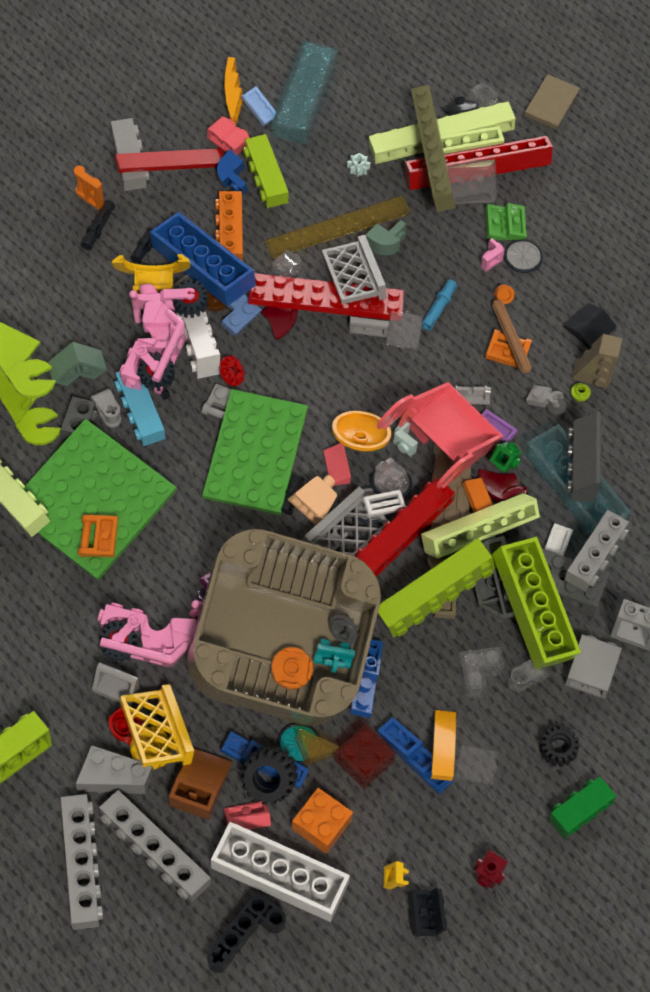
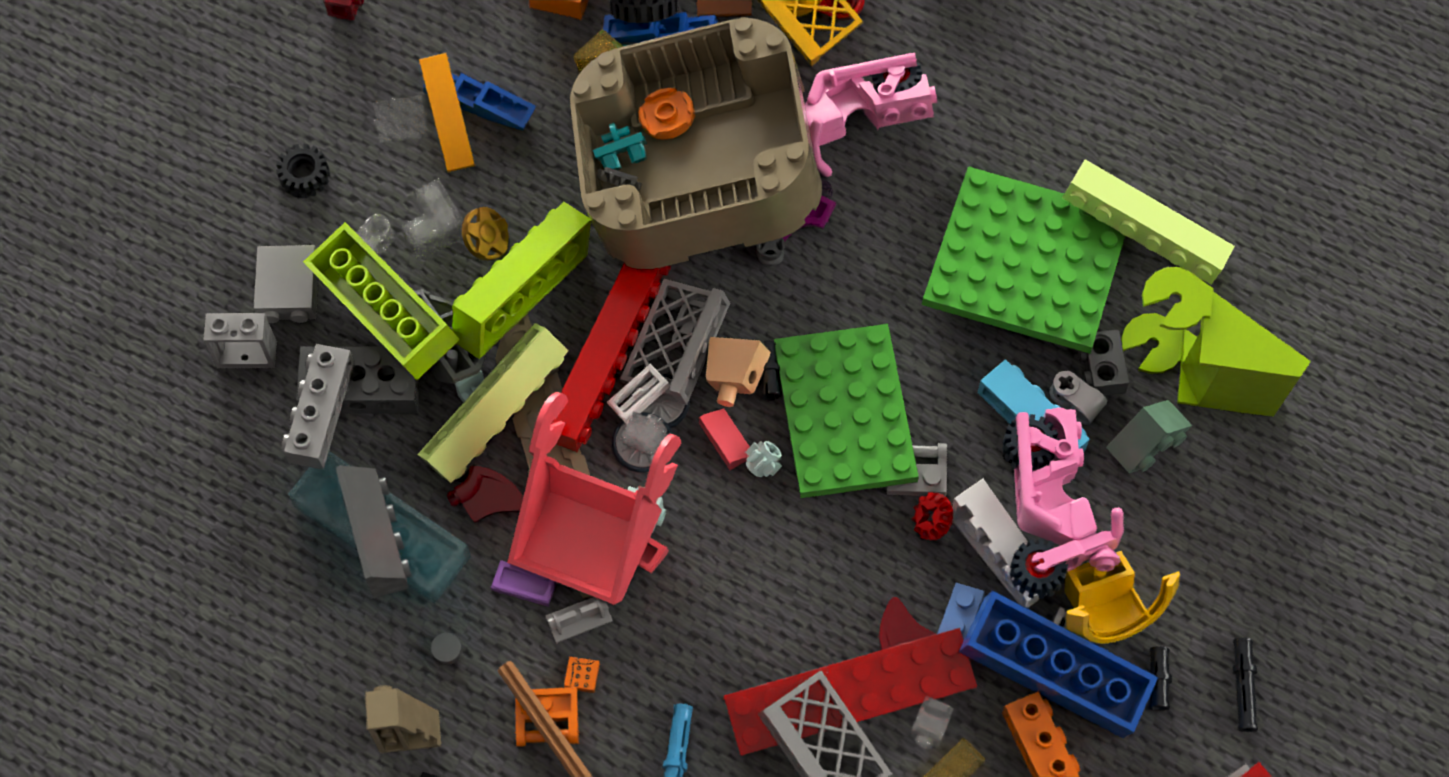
camera: 165 degrees right, 5 degrees up
(88, 188) = (1282, 724): orange plate -> none
(104, 536) = (982, 201): orange plate -> none
(114, 683) = (871, 46): light grey tile -> none
(320, 439) = (763, 459): none -> light aqua gear
(360, 432) = (728, 499): light orange dish -> none
(363, 702) = (564, 138): blue slope -> none
(364, 756) = (539, 69): clear red brick -> none
(368, 327) = (767, 666): light grey tile -> none
(404, 330) = (712, 680): clear piece -> none
(444, 647) = (486, 232): none -> pearl gold wheel
(477, 494) = (510, 458): orange tile -> none
(479, 365) = (582, 674): none -> orange tile
(501, 459) = (492, 528): green brick -> none
(541, 396) = (472, 652): light grey plate -> none
(558, 539) = (383, 439): white tile -> none
(580, 397) = (421, 693): lime plate -> none
(581, 807) = (253, 107): green brick -> none

